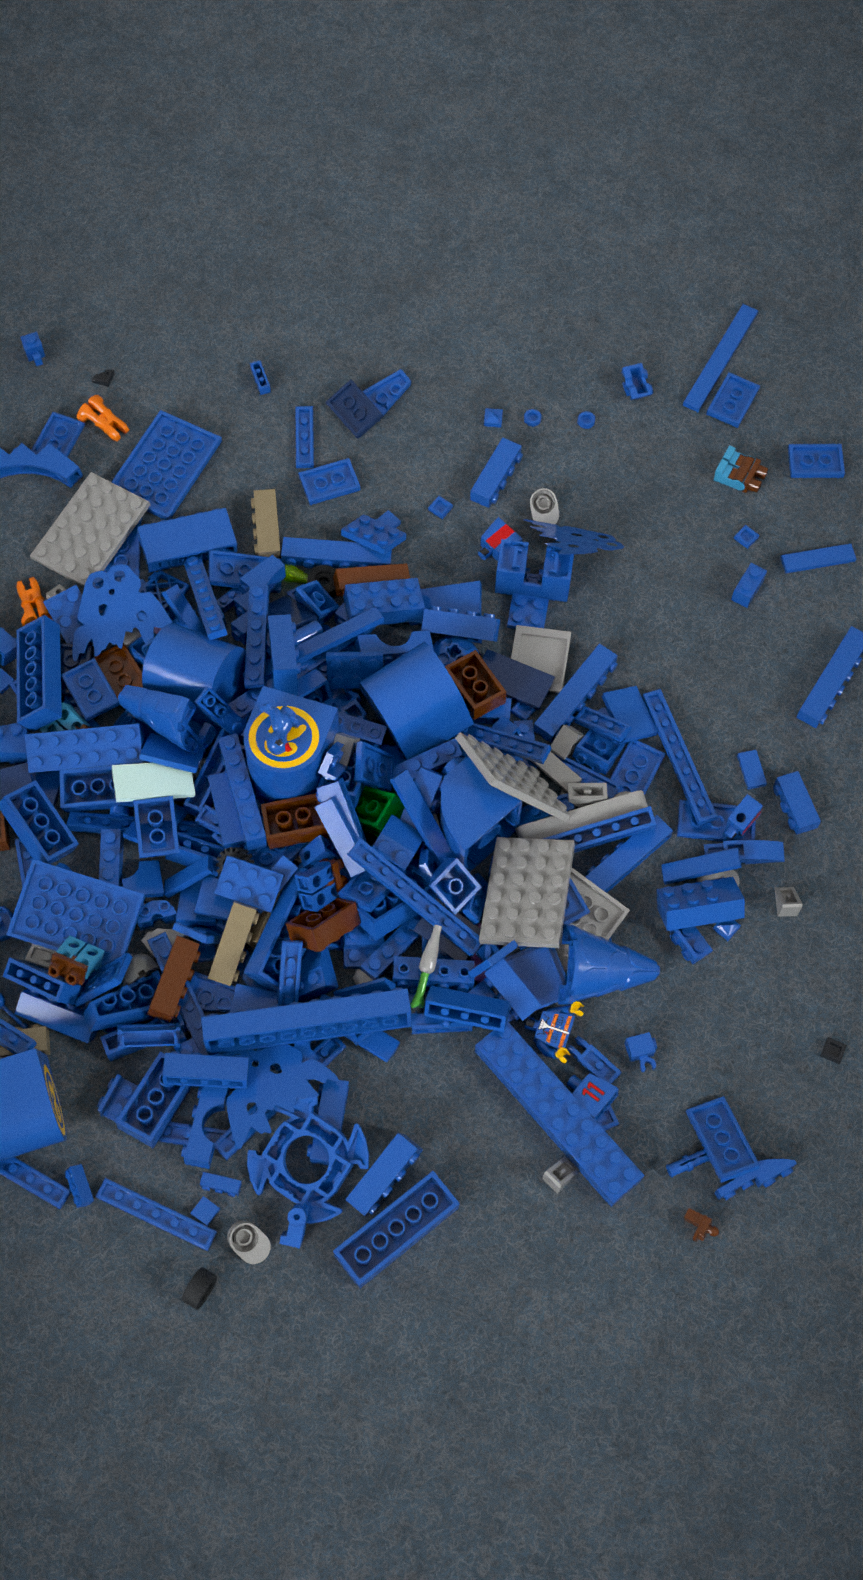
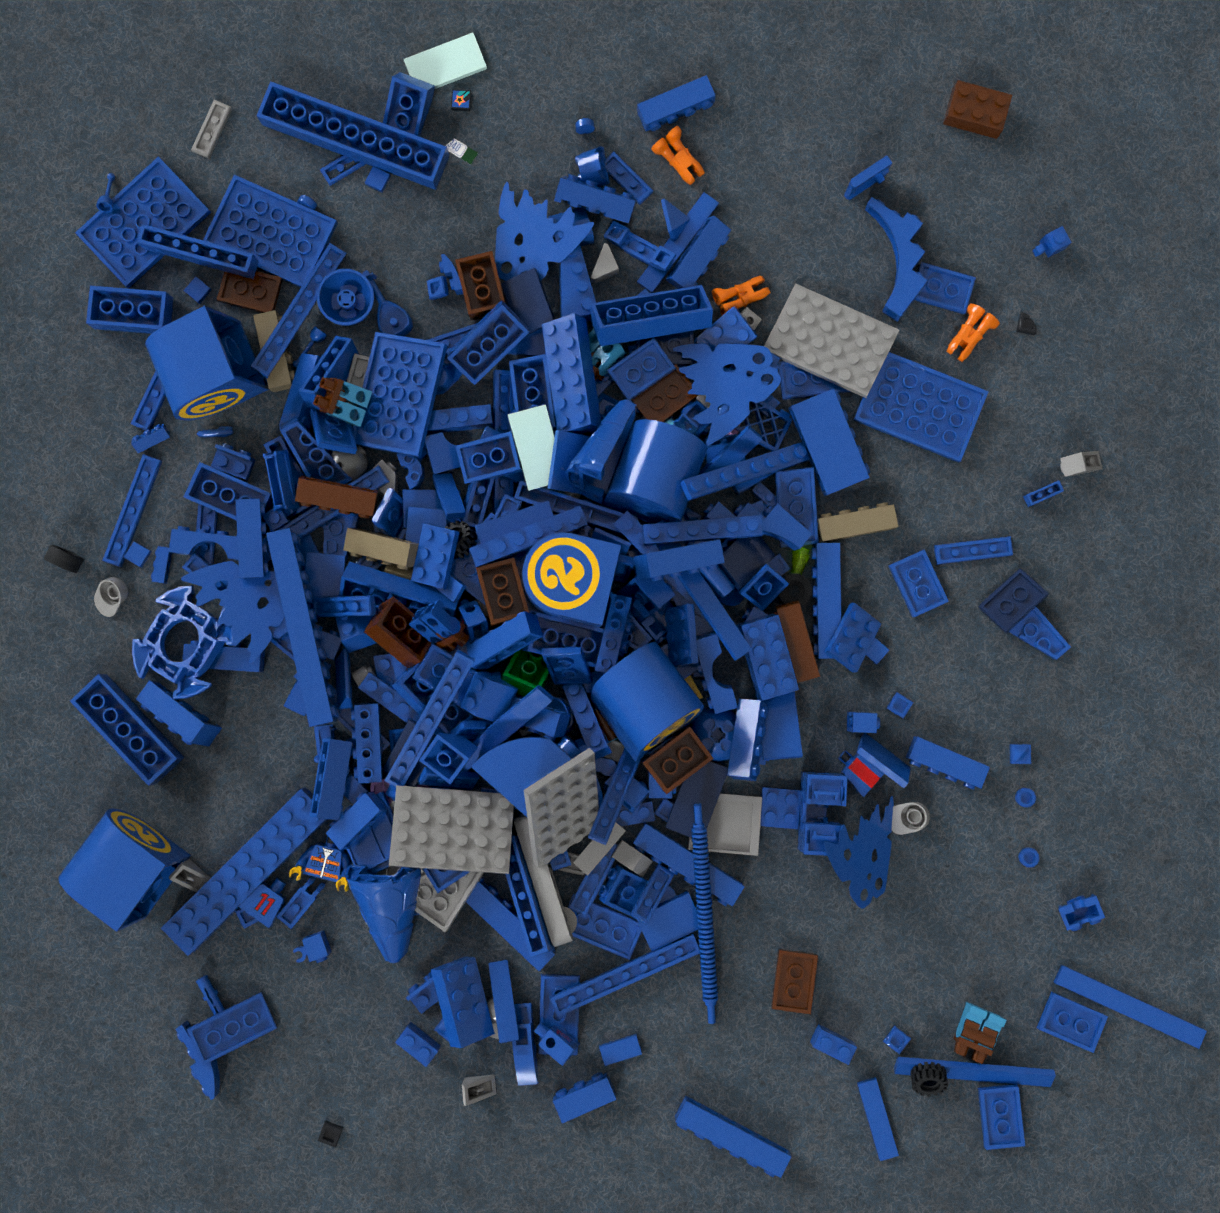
camera: 90 degrees right, 20 degrees up
(84, 1110) = (220, 432): none -> blue piece
(220, 712) = (606, 504): blue slope -> none
(237, 348) = (1081, 463): none -> light grey slope
(281, 722) = (571, 570): blue animal -> none
(297, 1224) = (120, 636): blue leg -> none
(330, 767) = (554, 626): blue bracket -> none
(339, 833) = (489, 637): tile -> none
(349, 747) = (583, 633): light grey slope -> none
(427, 966) = (365, 737): light grey piece -> none
(452, 533) = (862, 722): none -> blue brick
(485, 523) = (884, 760): none -> blue tile
(494, 958) = (376, 801): blue tile -> none
(545, 1229) = (121, 869): none -> blue brick
(586, 793) = (568, 883): light grey slope -> none
(623, 677) = (704, 914): none -> blue hose
(690, 613) = (794, 981): none -> reddish brown plate
(703, 1223) = (155, 1011): reddish brown piece -> none
(742, 953) = (418, 1044): none -> blue brick
(775, 478) = (982, 1072): none -> blue tile
(781, 510) = (929, 1079): none -> black tyre

